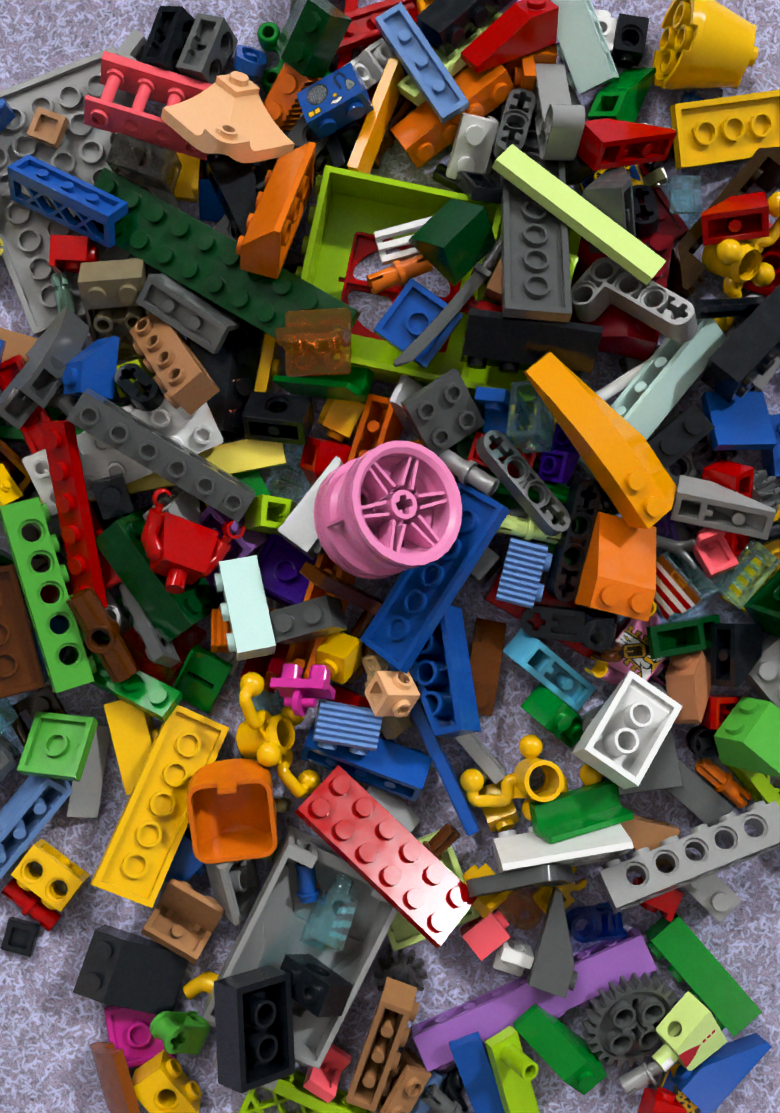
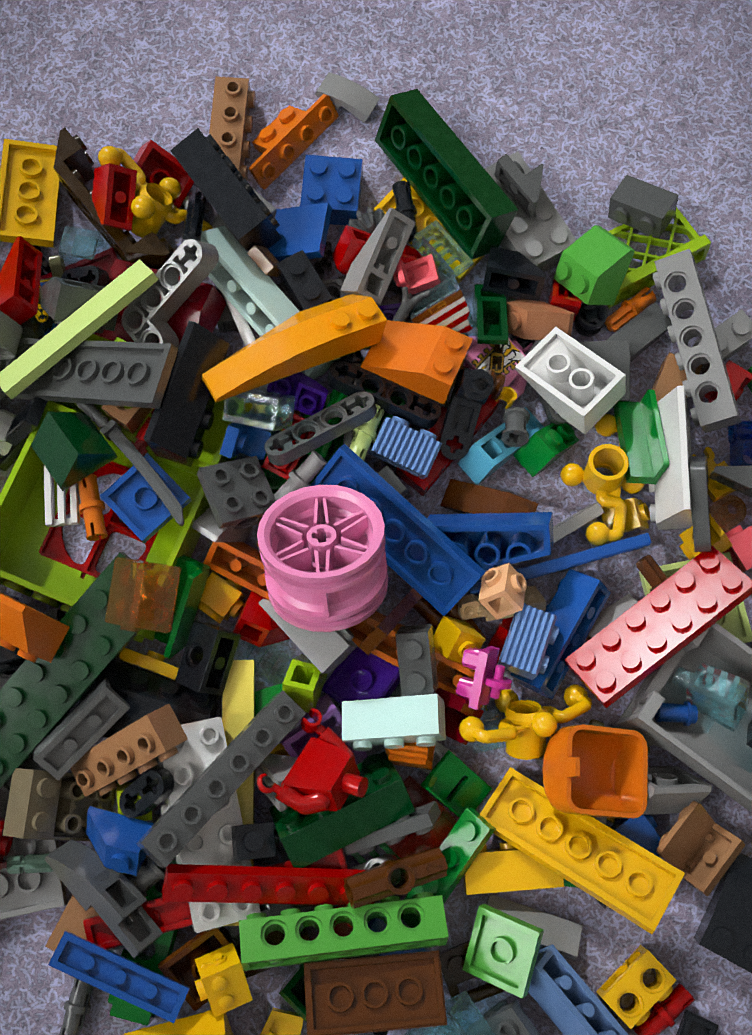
camera: 80 degrees left, 10 degrees down
(567, 681) = (515, 427): none -> dark grey bush
(698, 390) = (264, 260): none -> medium nougat tile

